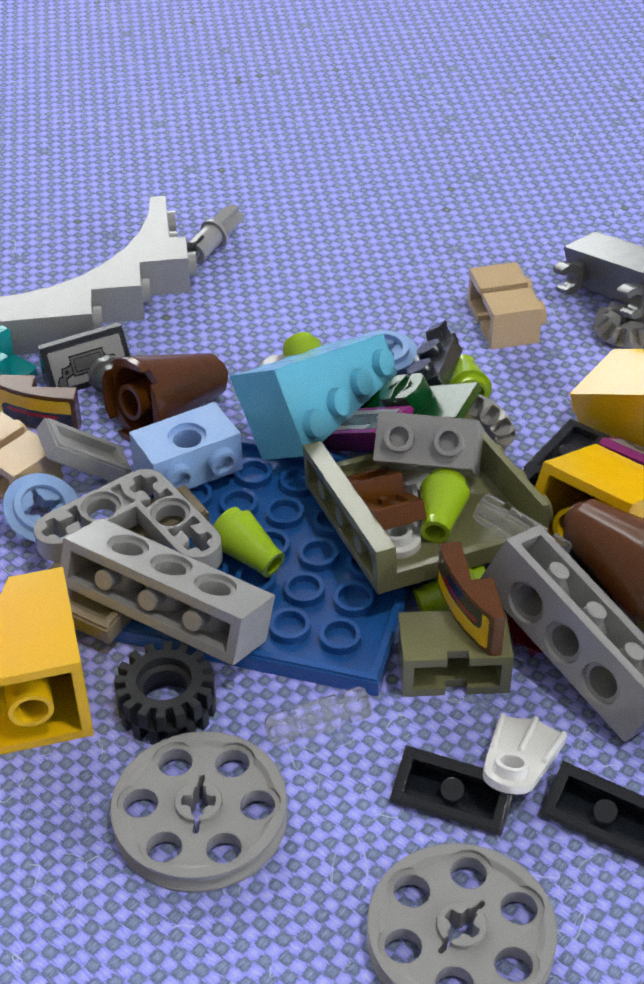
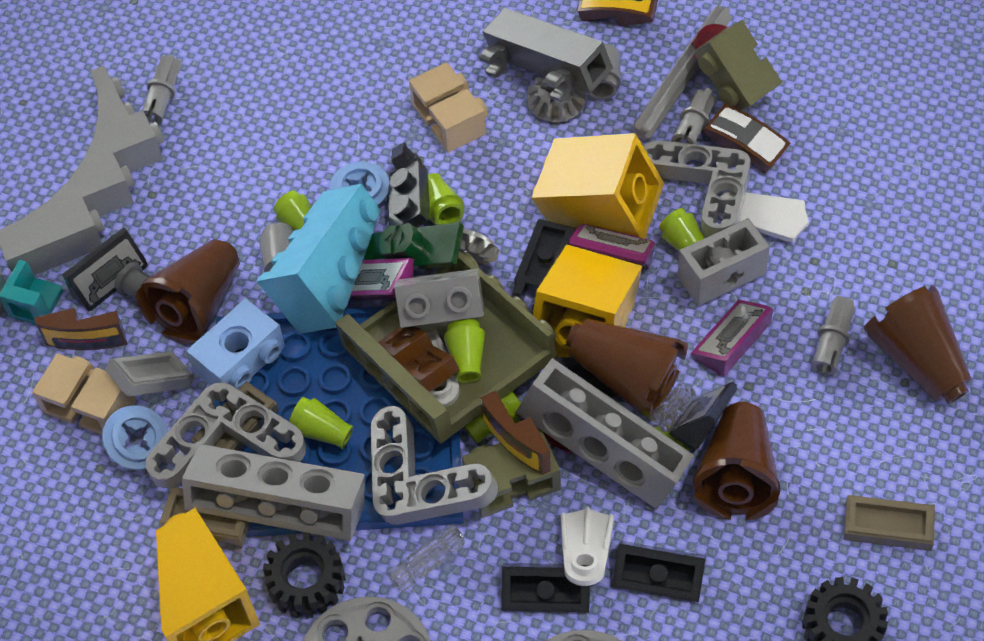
camera: 15 degrees left, 15 degrees up
(388, 640) = (414, 487): none -> light grey beam
(509, 523) = (530, 357): clear axle -> none

